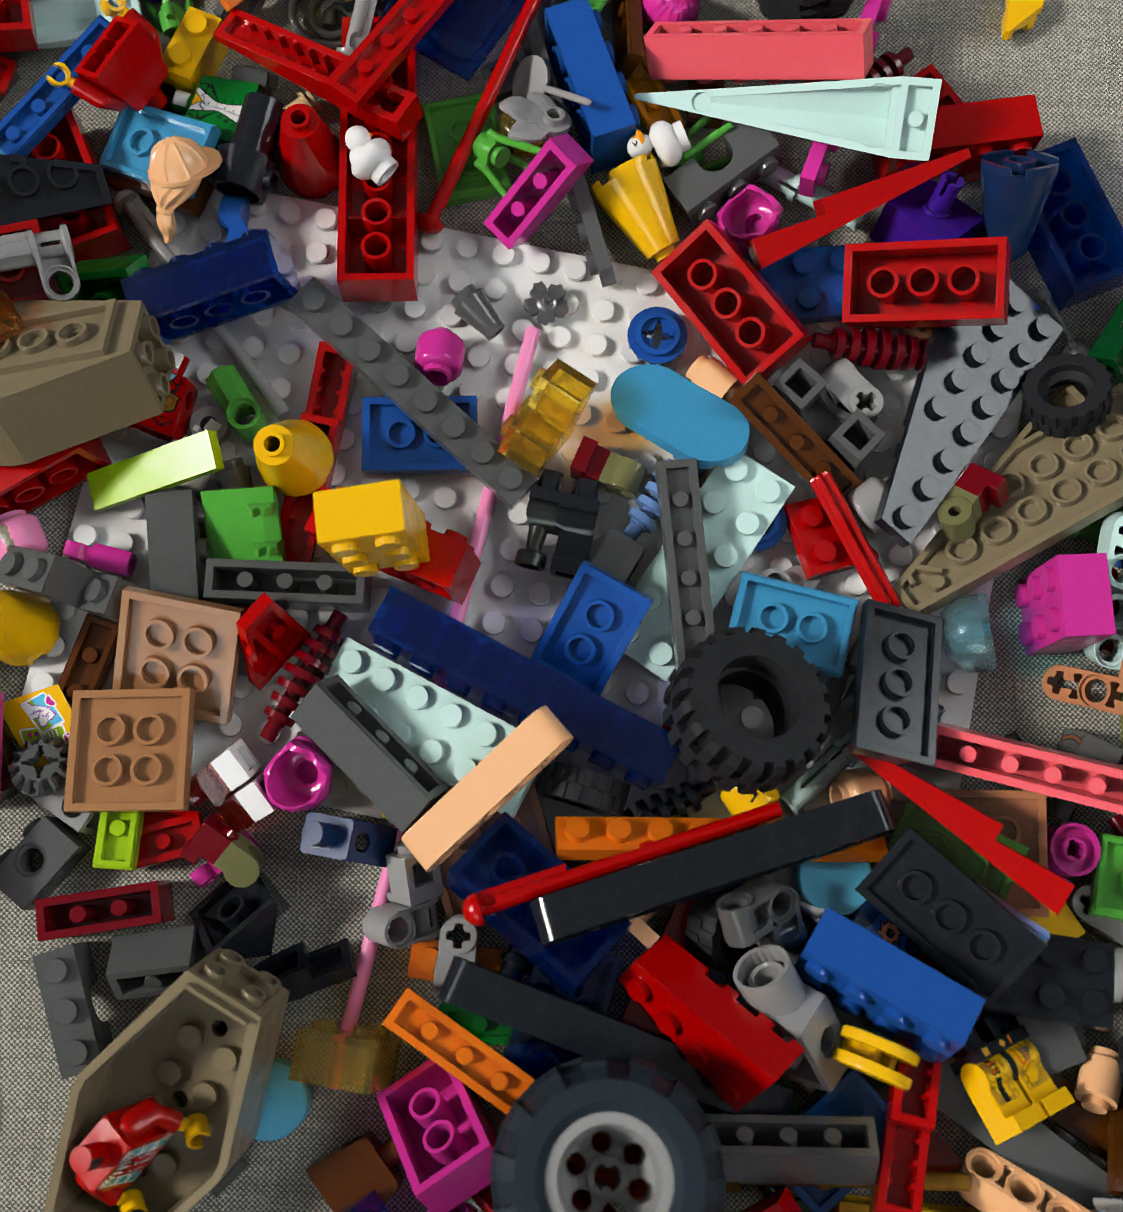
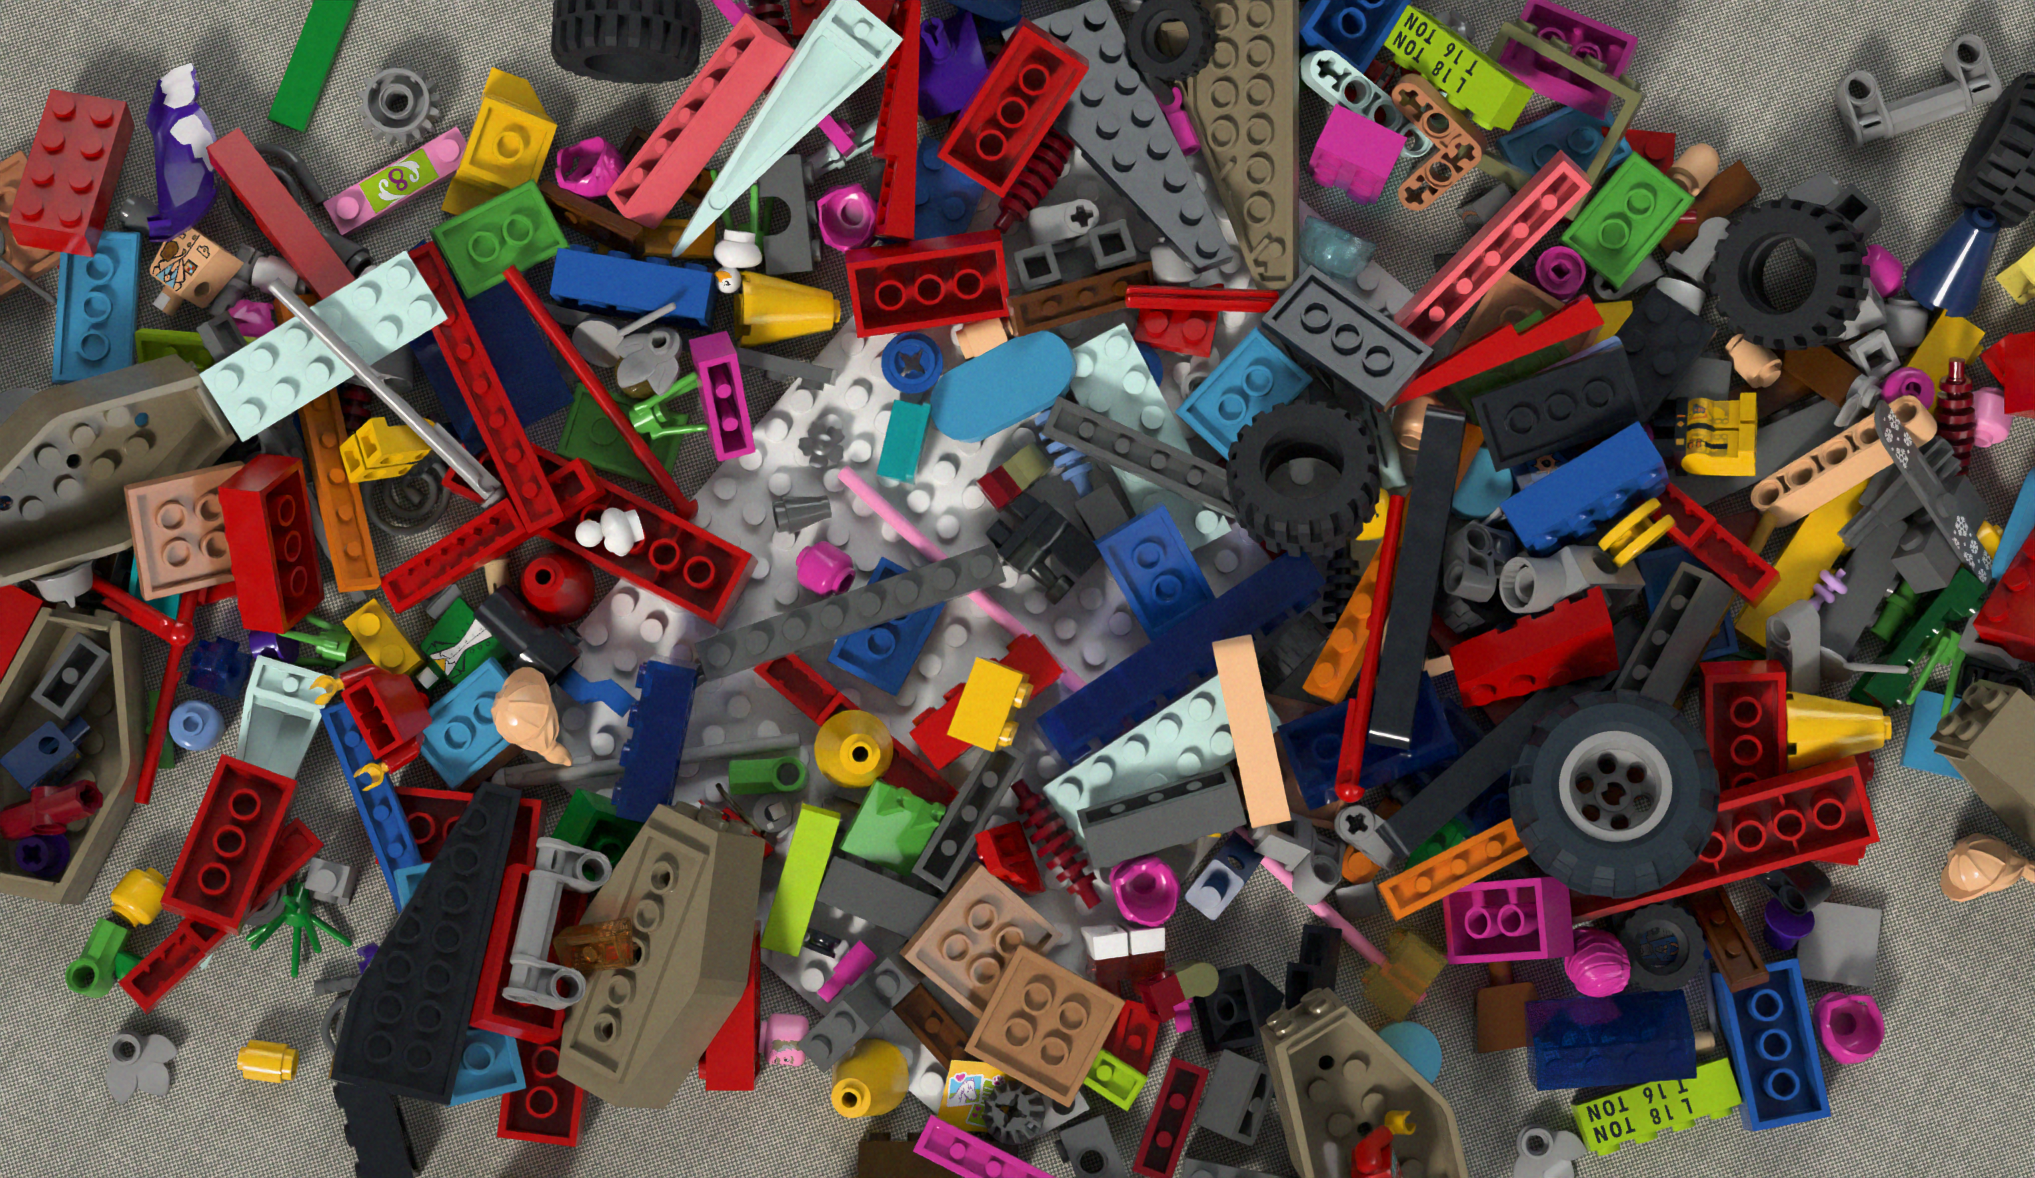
camera: 60 degrees left, 5 degrees up
(115, 522) = (821, 942): none -> black bush
(184, 421) = (739, 810): none -> olive piece
(395, 976) = (1359, 900): none -> dark grey piece
(546, 416) = (943, 505): clear yellow brick -> none
(597, 361) = (904, 441): none -> teal panel
(969, 501) = (1220, 181): leg -> none
(996, 444) = (1180, 124): none -> dark pink bar

